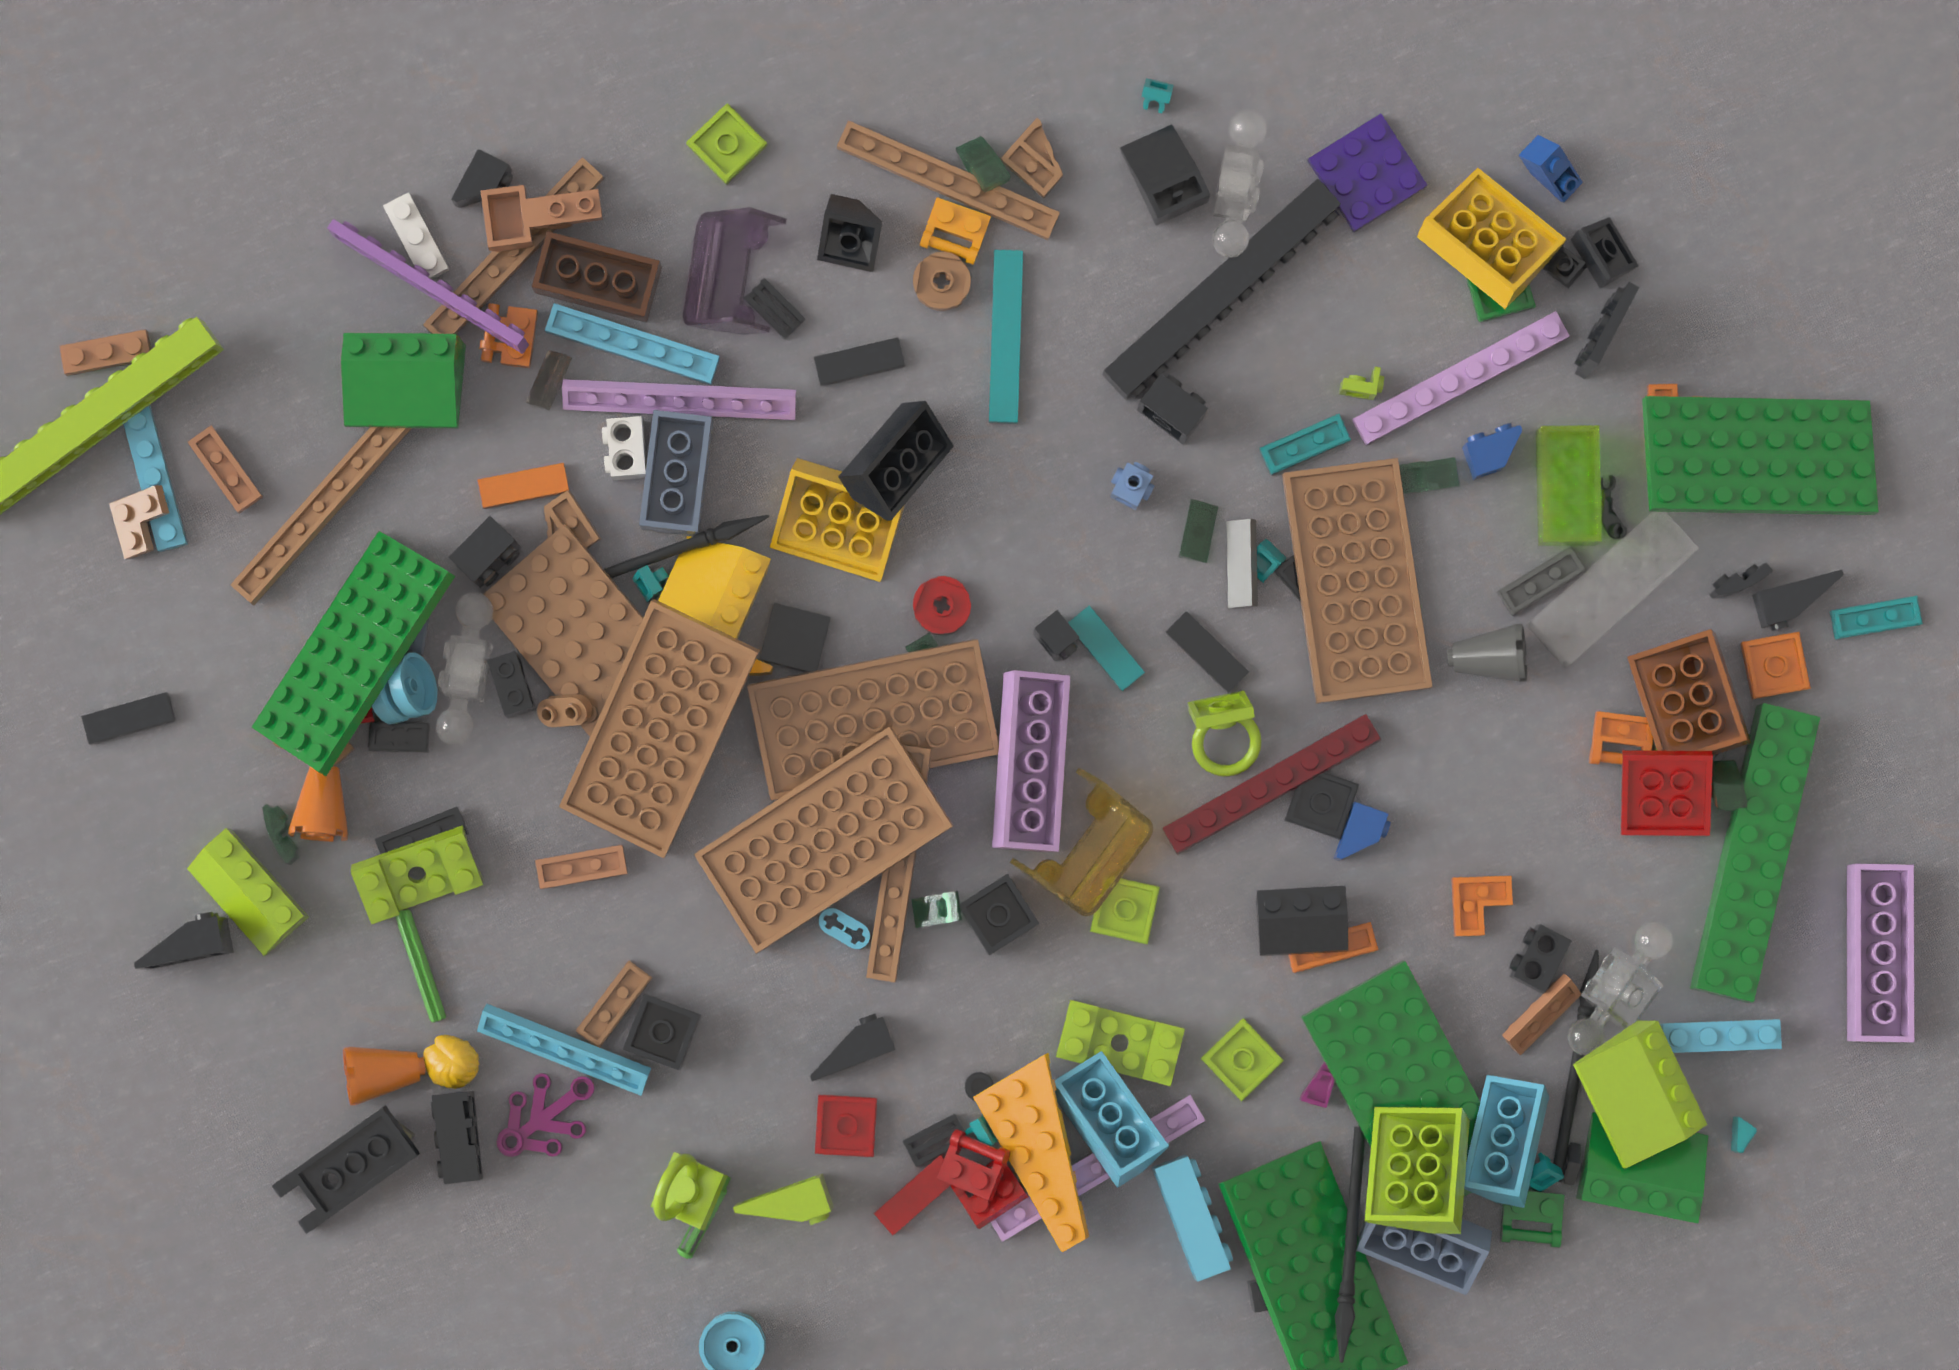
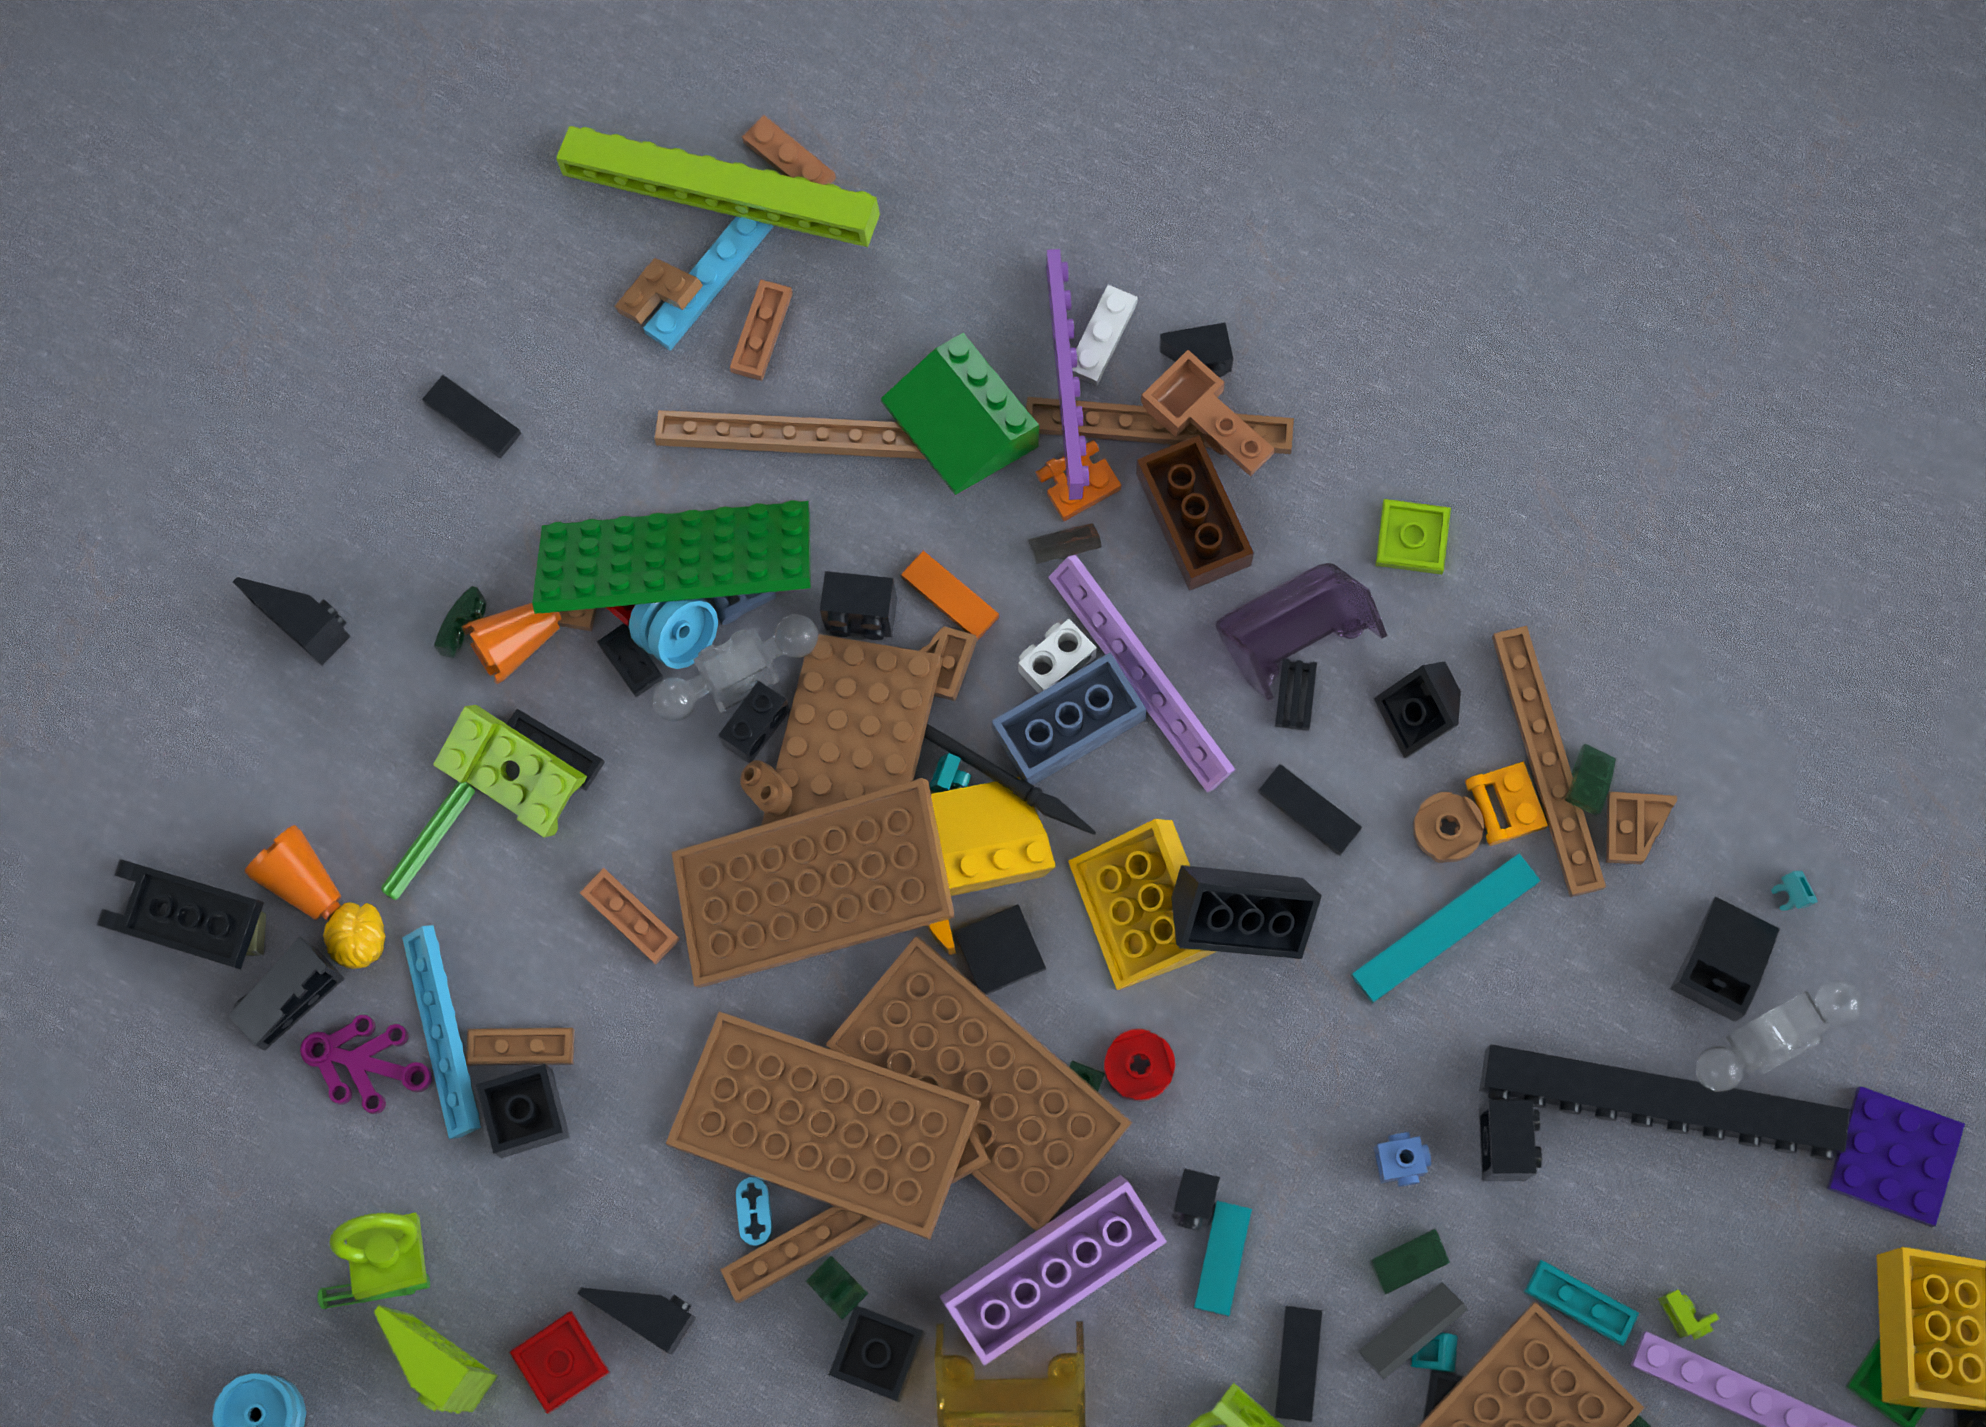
camera: 65 degrees right, 10 degrees down
(247, 891) = (387, 633): lime slope -> none
(632, 344) = (1158, 593): medium azure plate -> none

